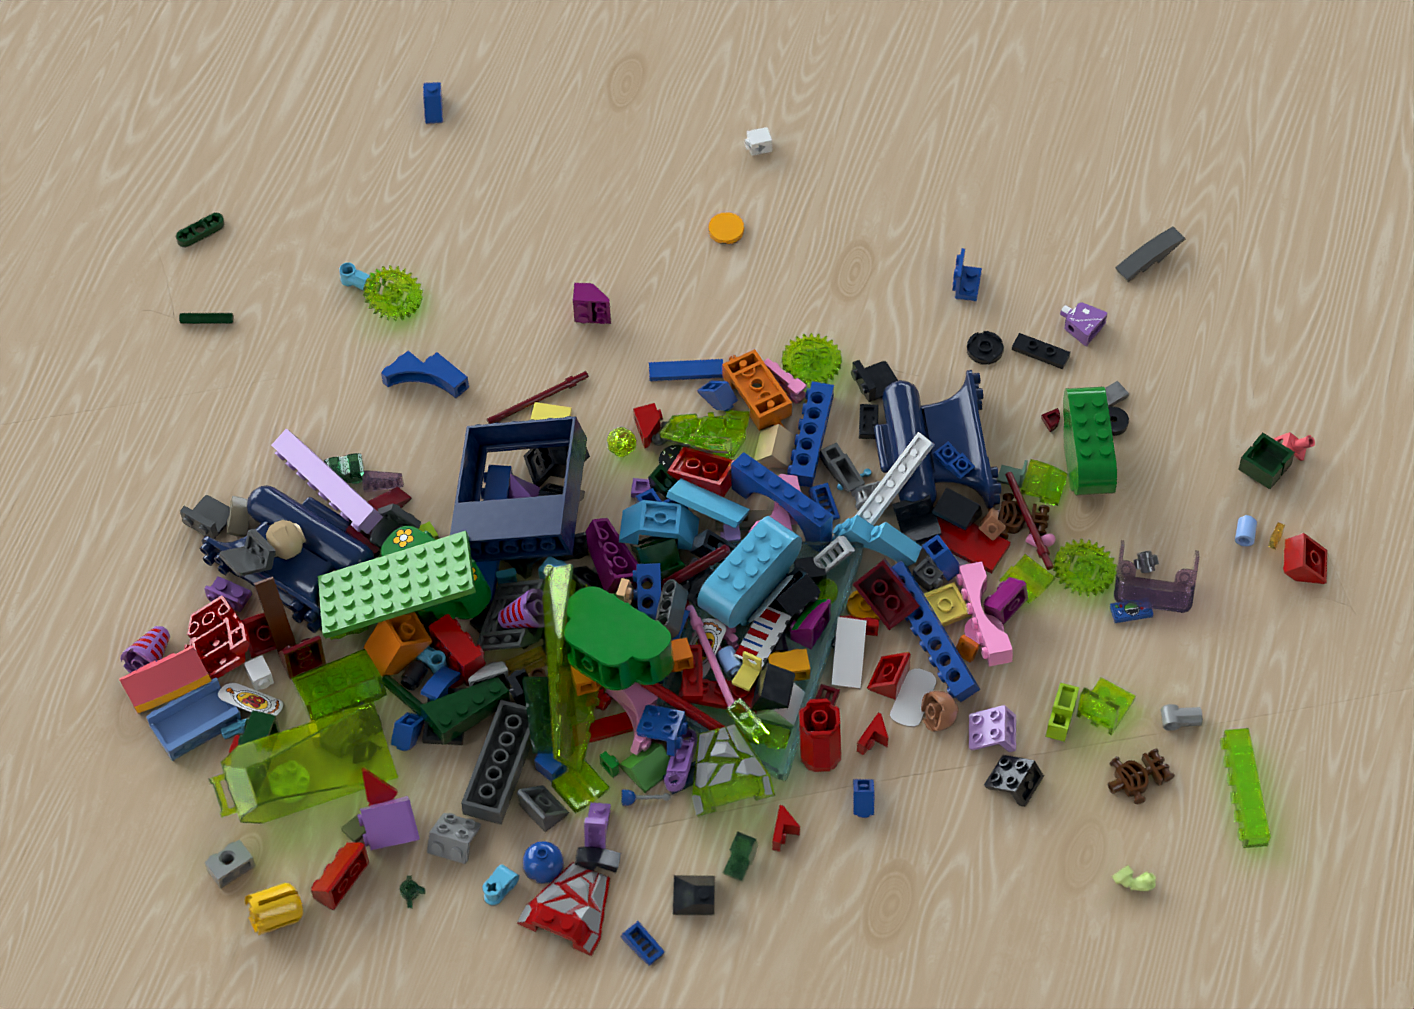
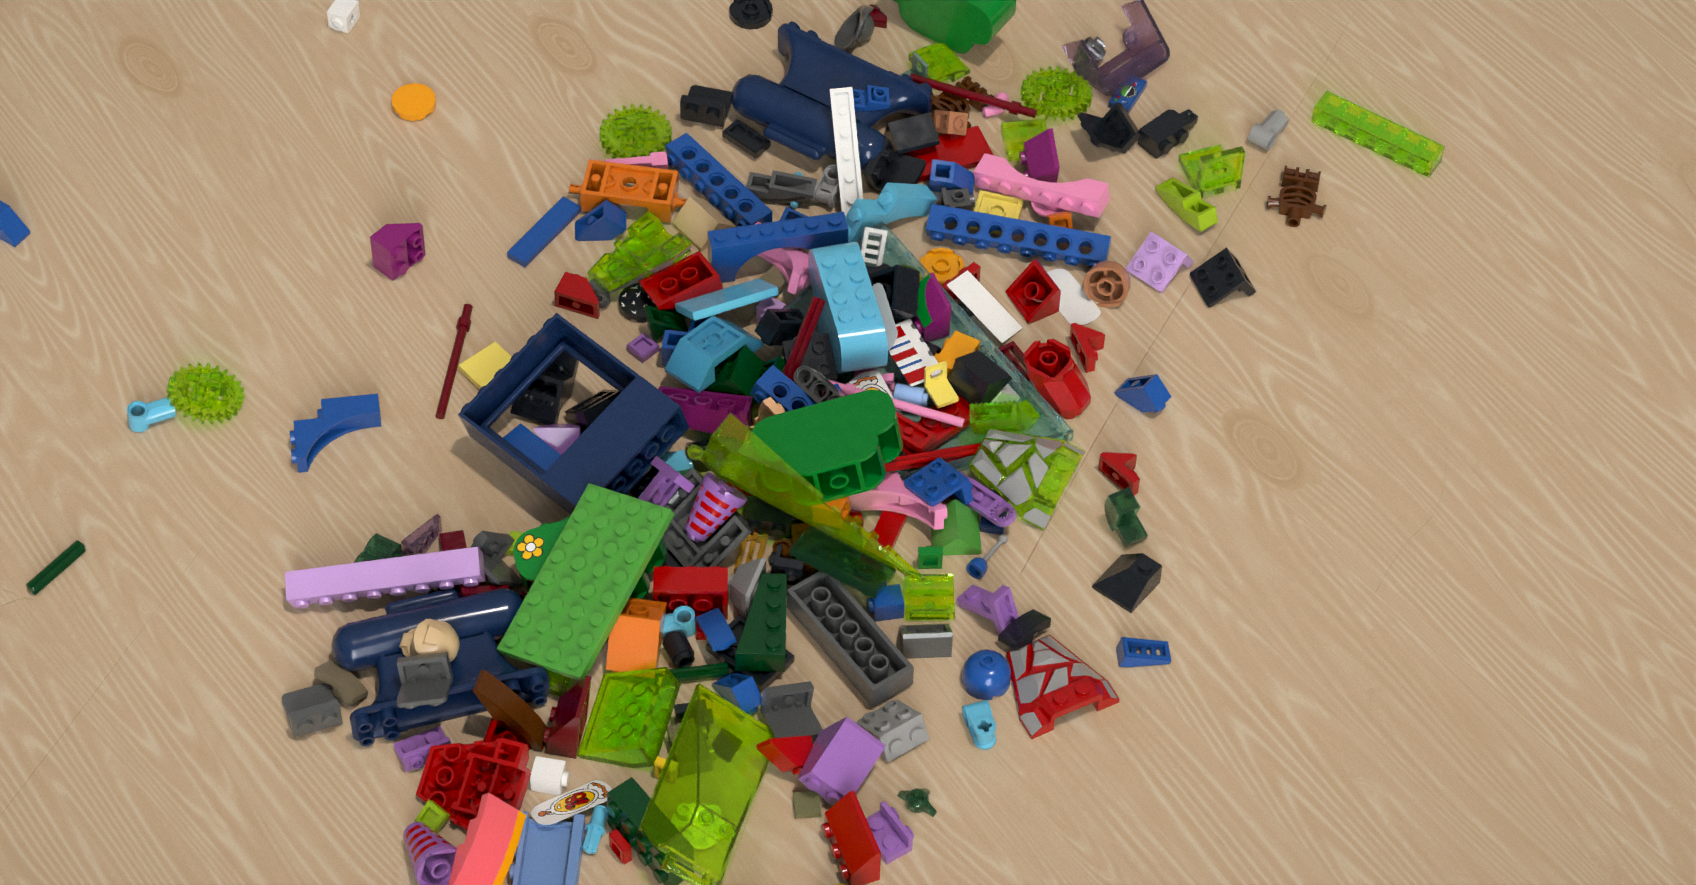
camera: 55 degrees left, 5 degrees down
(179, 634) = (433, 816): none -> lime tile
(368, 889) = (890, 833): none -> medium lavender bracket
(412, 771) = (789, 710): none -> dark grey bracket
(518, 574) = (664, 484): none -> medium lavender bracket
(621, 441) = (583, 321): clear neon green piece -> none
(886, 594) = (953, 237): dark red slope -> none
(1025, 415) = (855, 28): none -> dark grey hat
(1078, 620) = (1113, 131): none -> black bracket
(1117, 656) = (1166, 131): none -> black hinge
(1144, 882) = (1405, 261): yellowish green arm -> none

